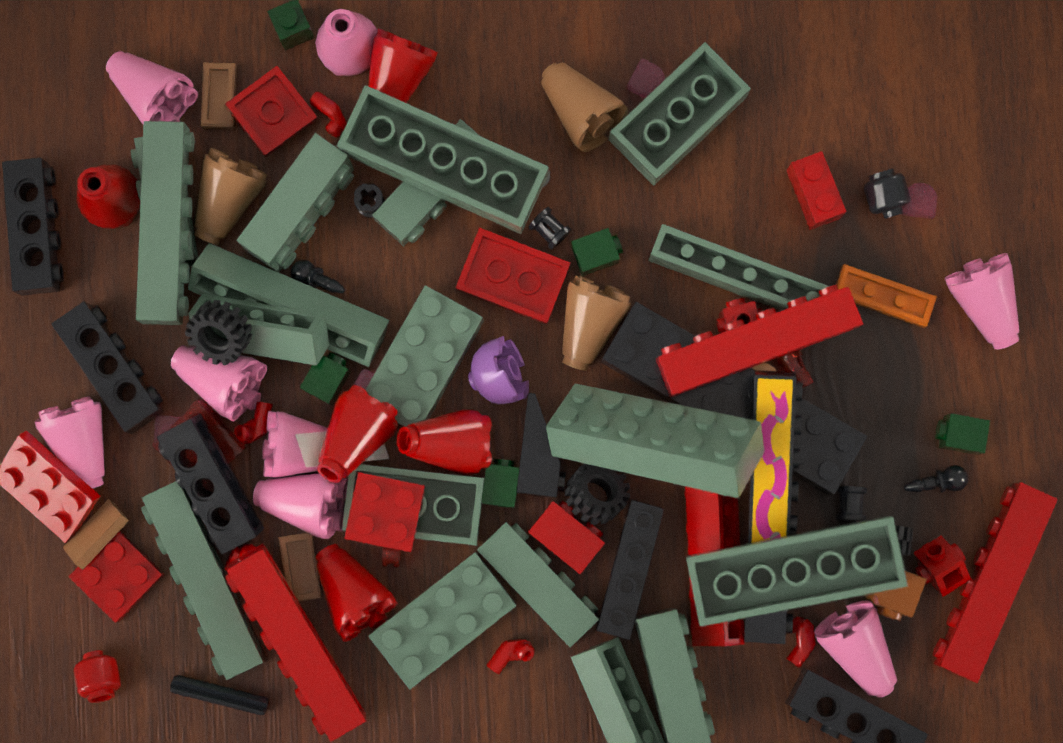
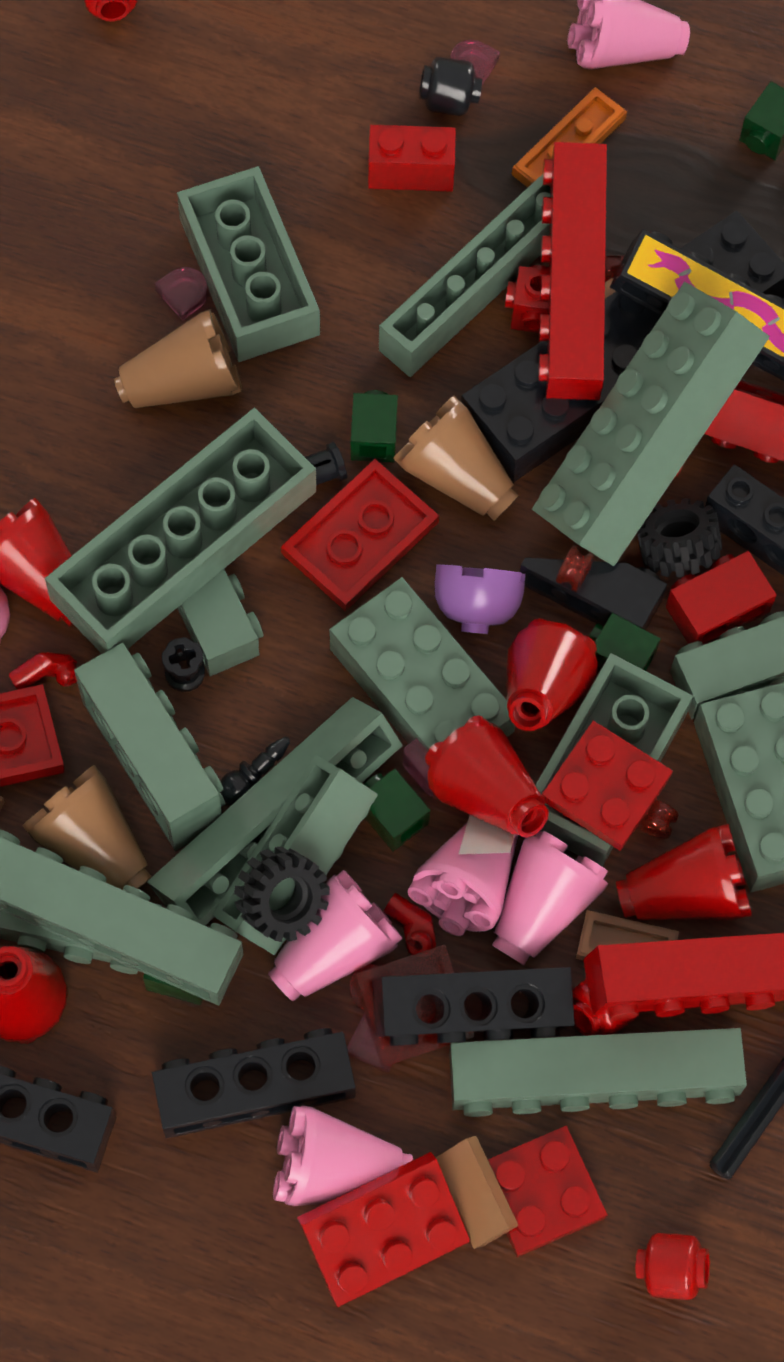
camera: 70 degrees left, 15 degrees down
(534, 430) = (575, 568): none -> clear red bush

